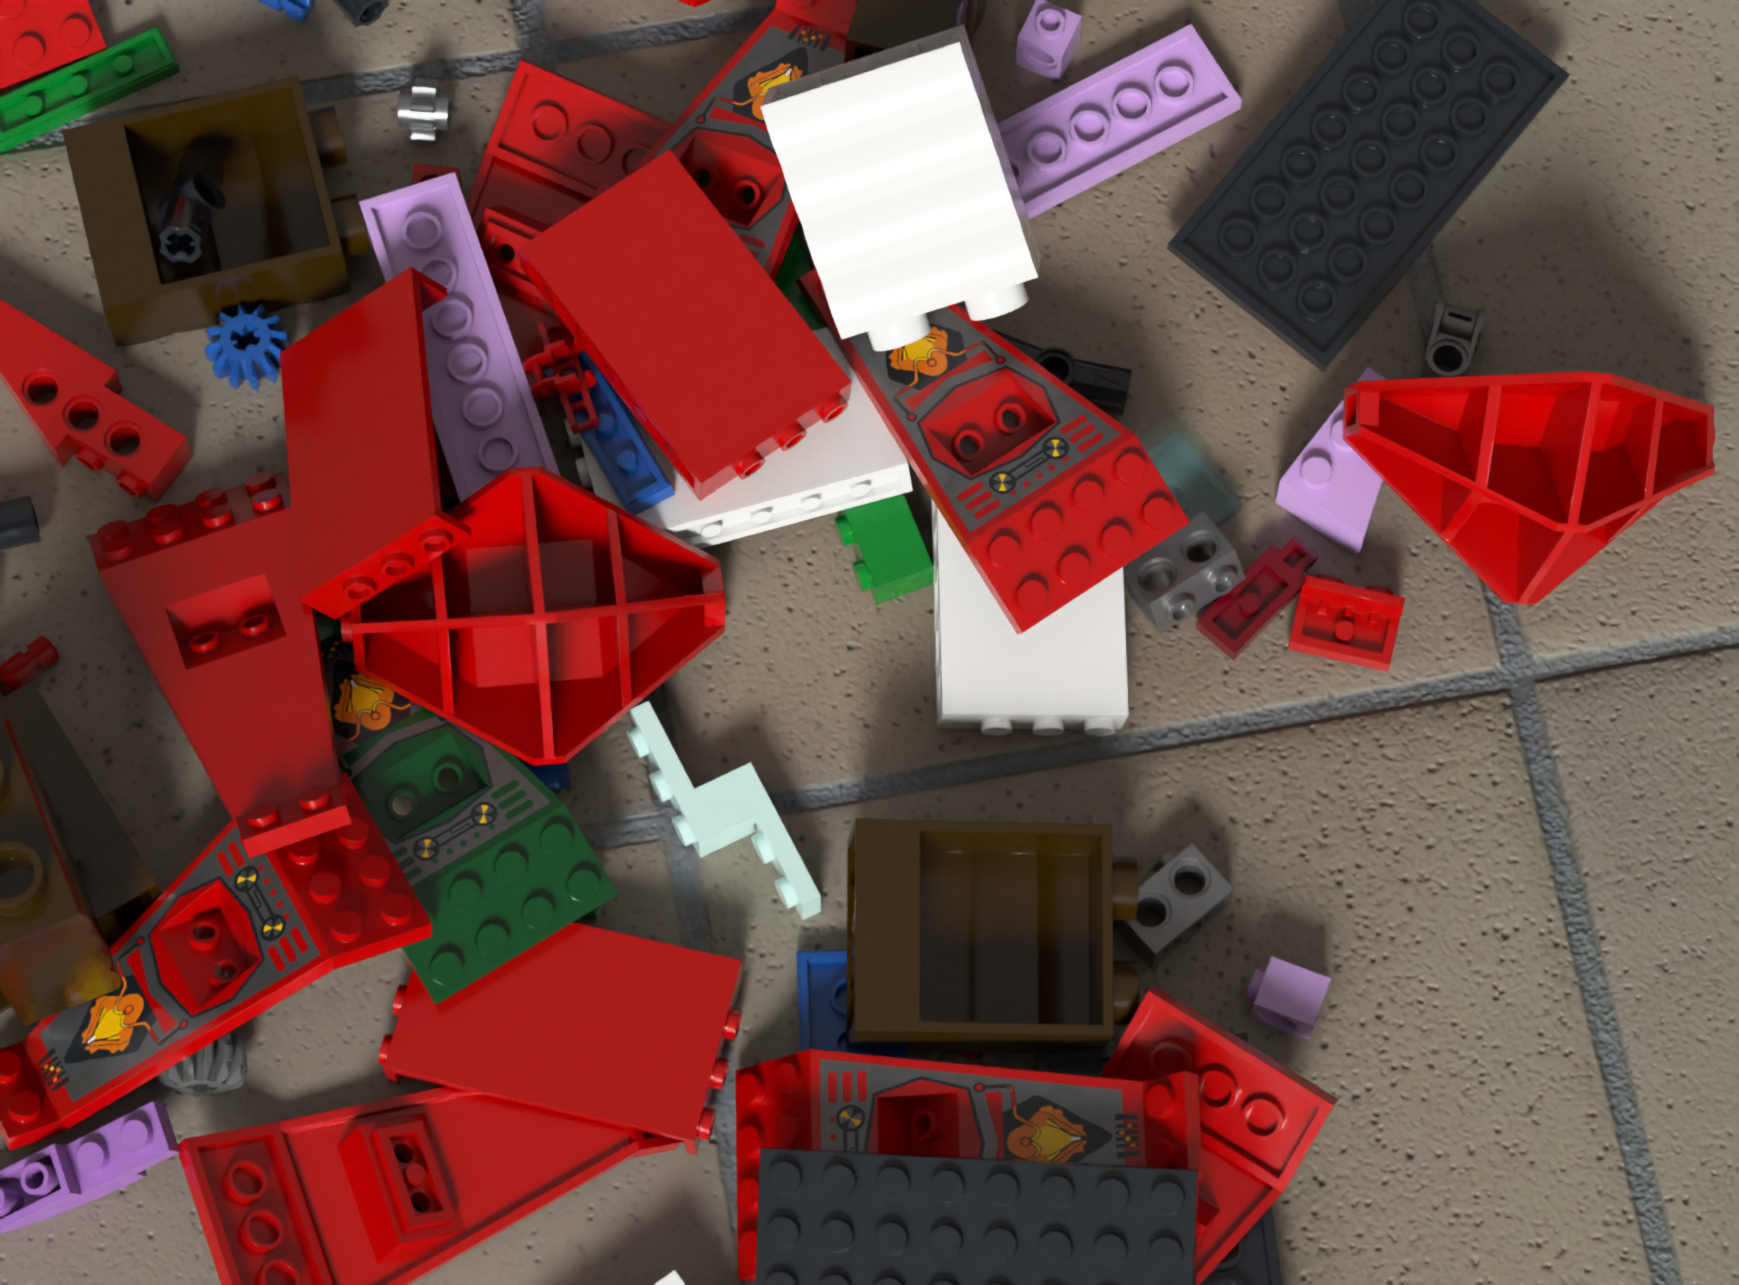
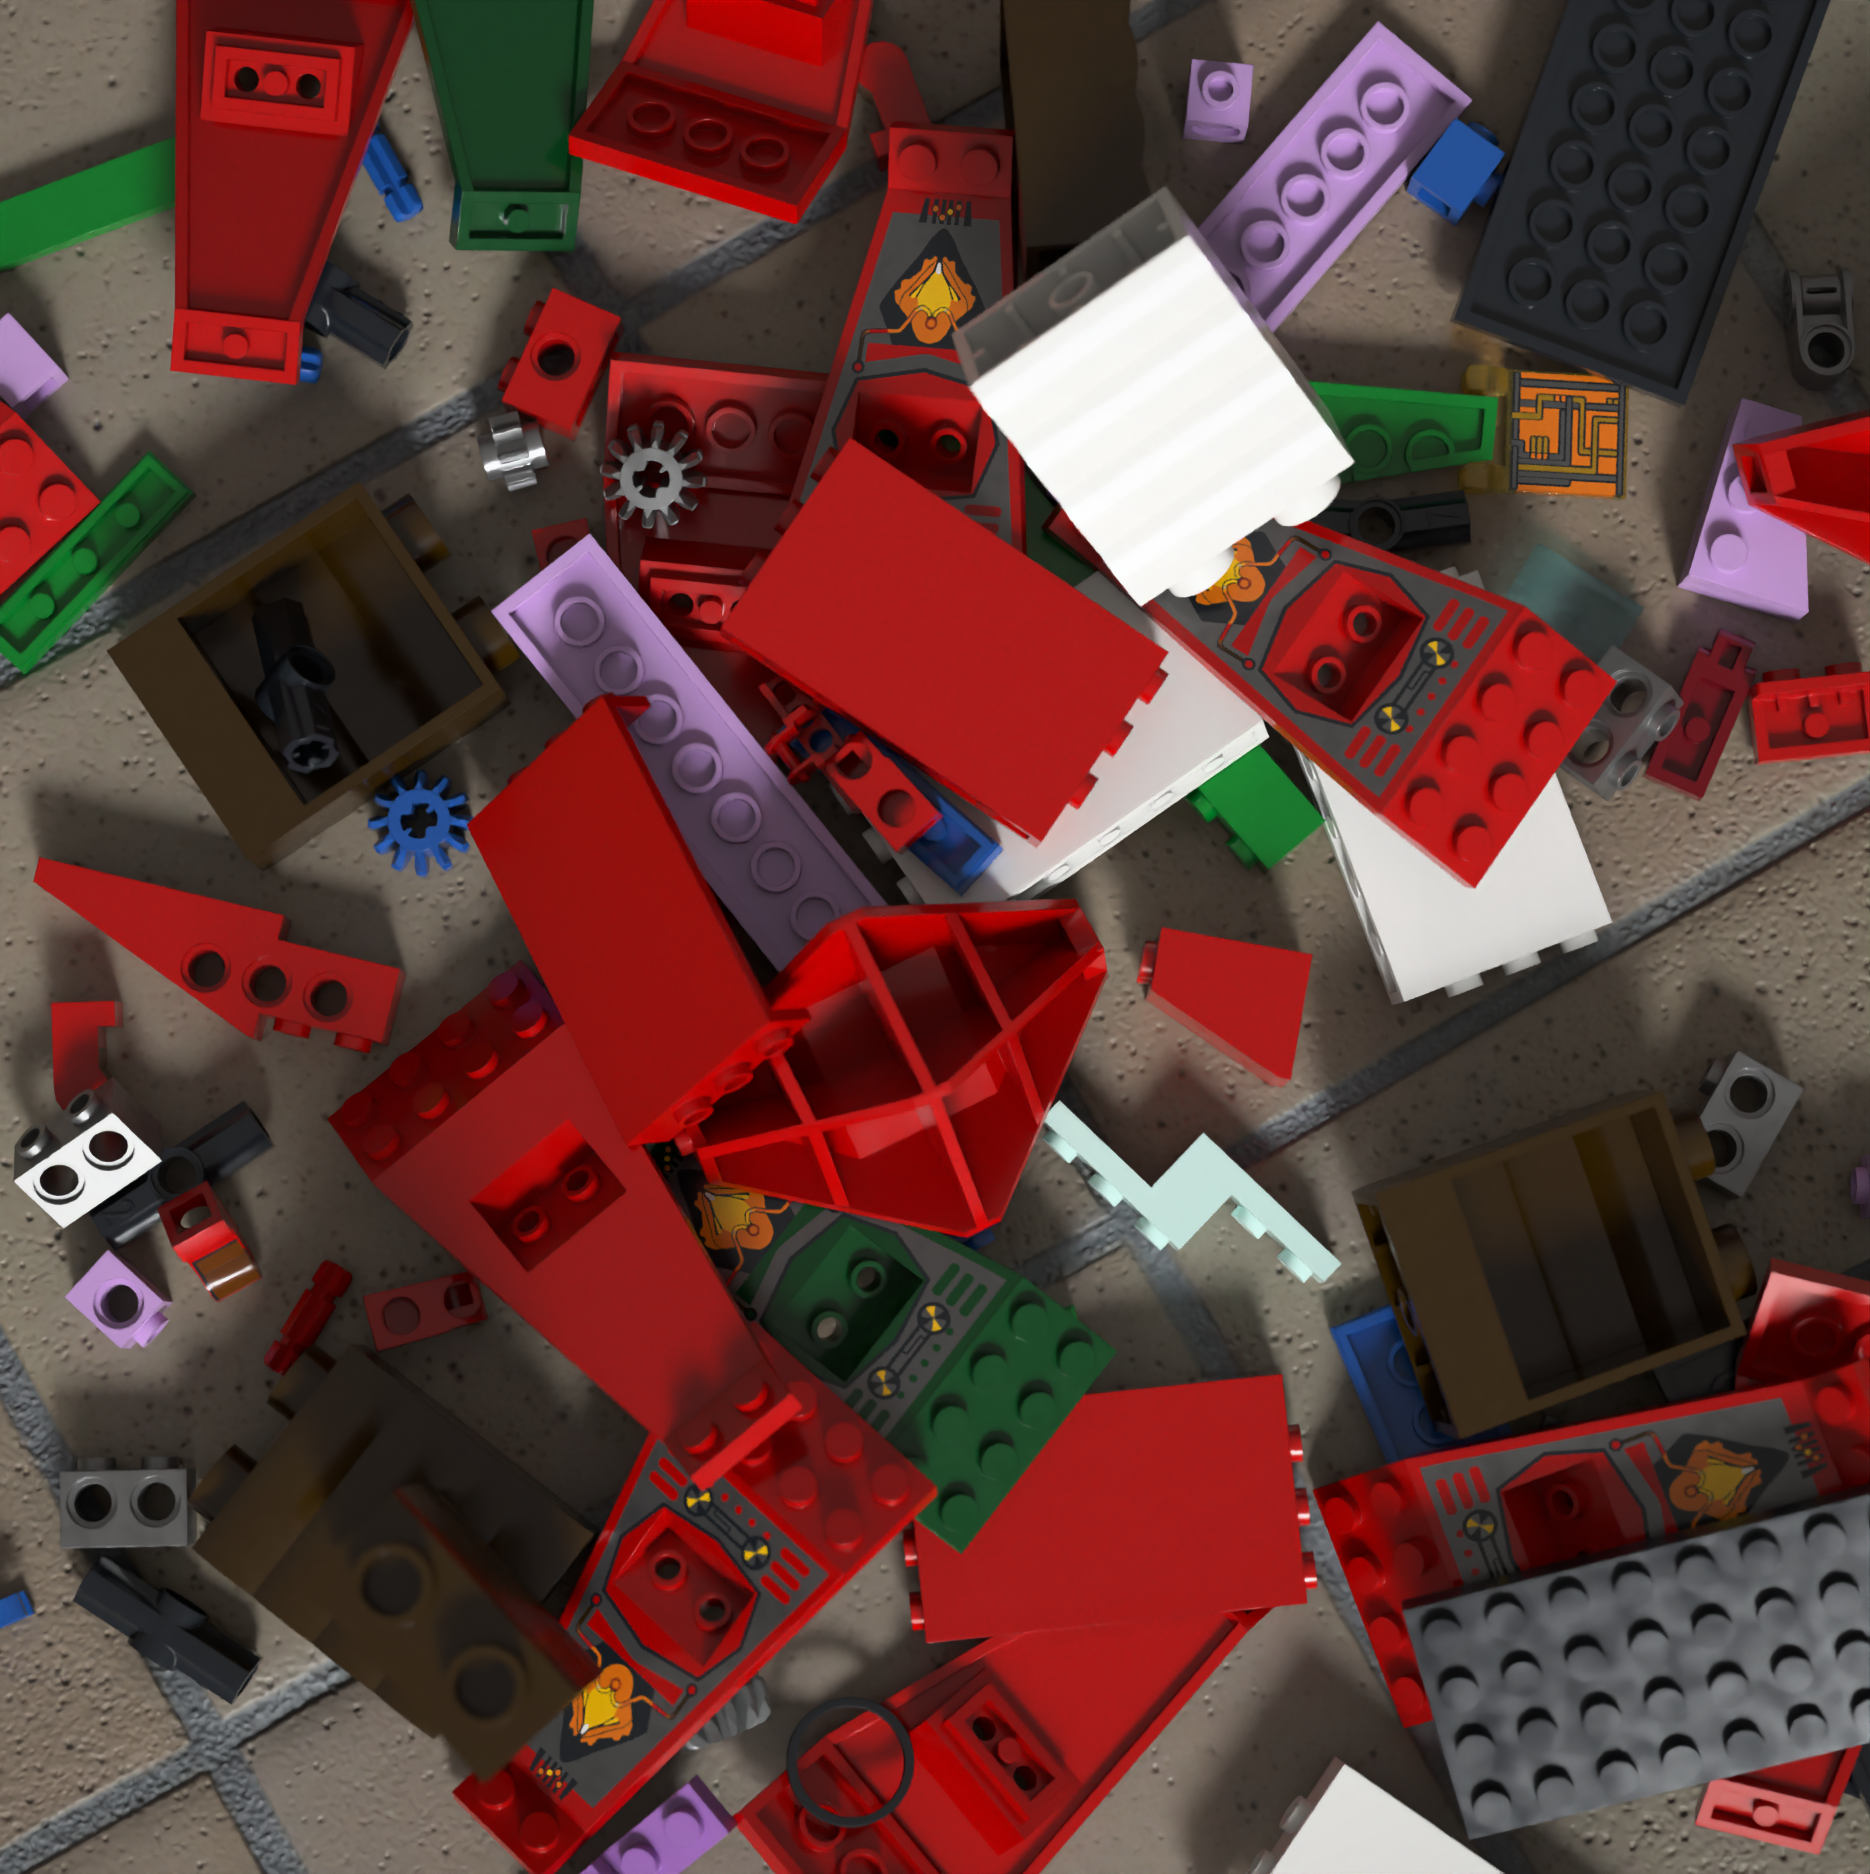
camera: 20 degrees left, 15 degrees up
(101, 695) = (424, 1310): none -> red leg
(296, 1096) = (891, 1720): none -> black piece
(482, 87) = (561, 400): none -> red brick
(517, 136) = (636, 459): none -> flat silver gear
(597, 416) = (882, 792): none -> red leg
(811, 668) = (1231, 996): none -> red slope
(1089, 314) = (1408, 429): none -> green wing
(1210, 146) = (1458, 171): none -> blue brick
(1221, 361) = (1558, 437): none -> flag

